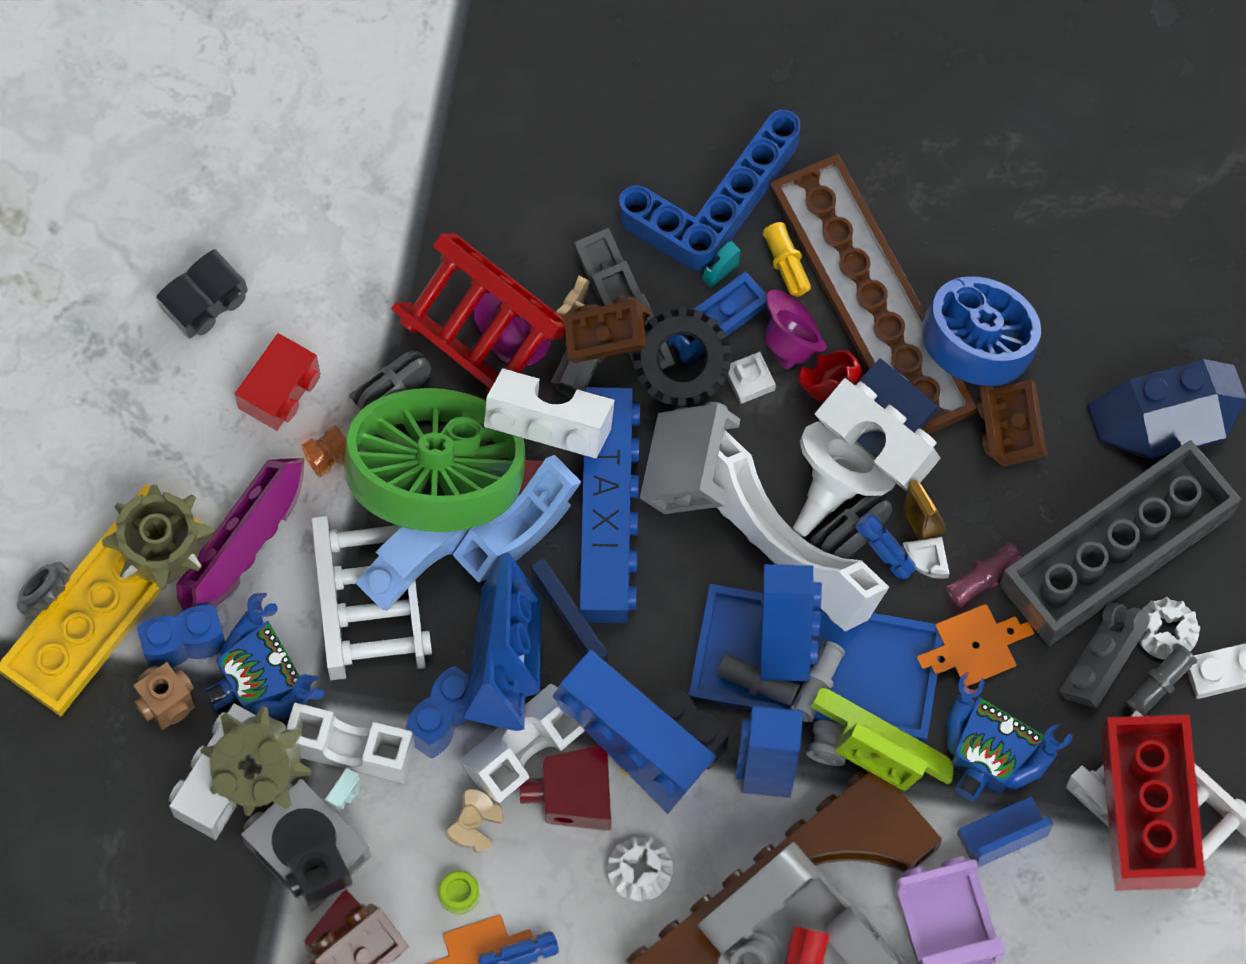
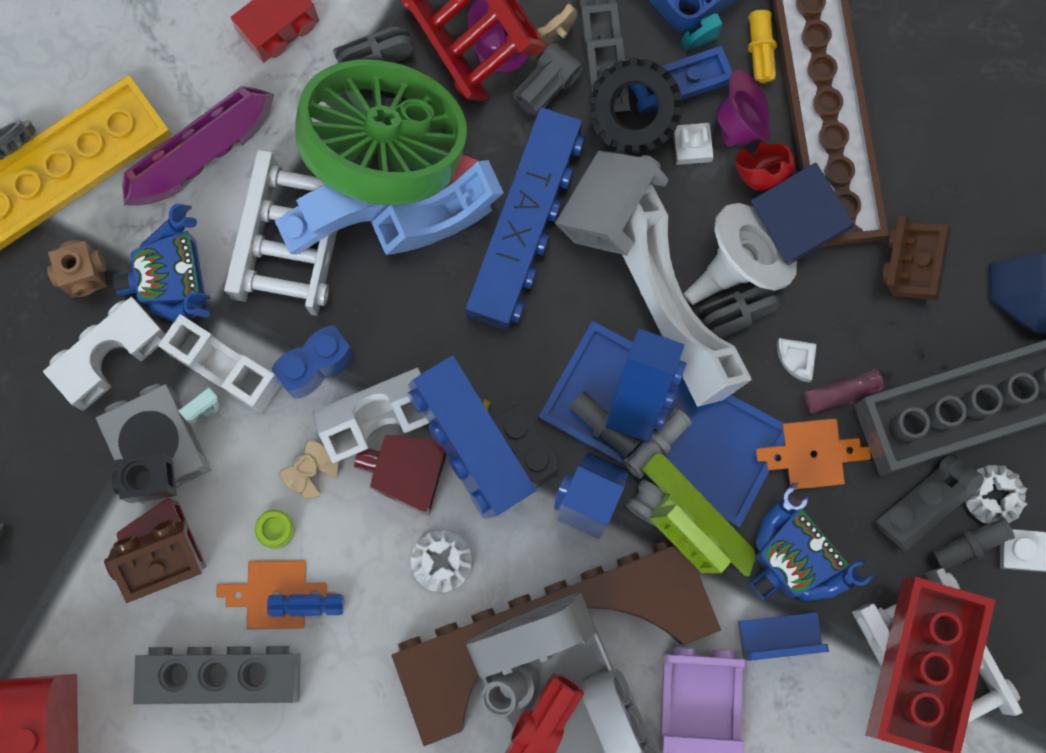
camera: 20 degrees right, 10 degrees up
(158, 515) = (114, 125): olive brick -> none
(191, 634) = (110, 221): blue brick -> none
(273, 748) = (123, 358): olive brick -> none
(334, 445) = (285, 93): clear orange wheel -> none
(505, 648) = (386, 325): blue slope -> none
(566, 610) = (457, 310): dark blue tile -> none
(572, 426) = (515, 139): white arch -> none
(605, 330) = (573, 59): reddish brown bracket -> none
(853, 412) = (775, 205): white arch -> none
(886, 546) = (762, 337): blue axle -> none
(922, 513) = (806, 317): pearl gold slope -> none
(968, 335) = (905, 161): blue piece -> none

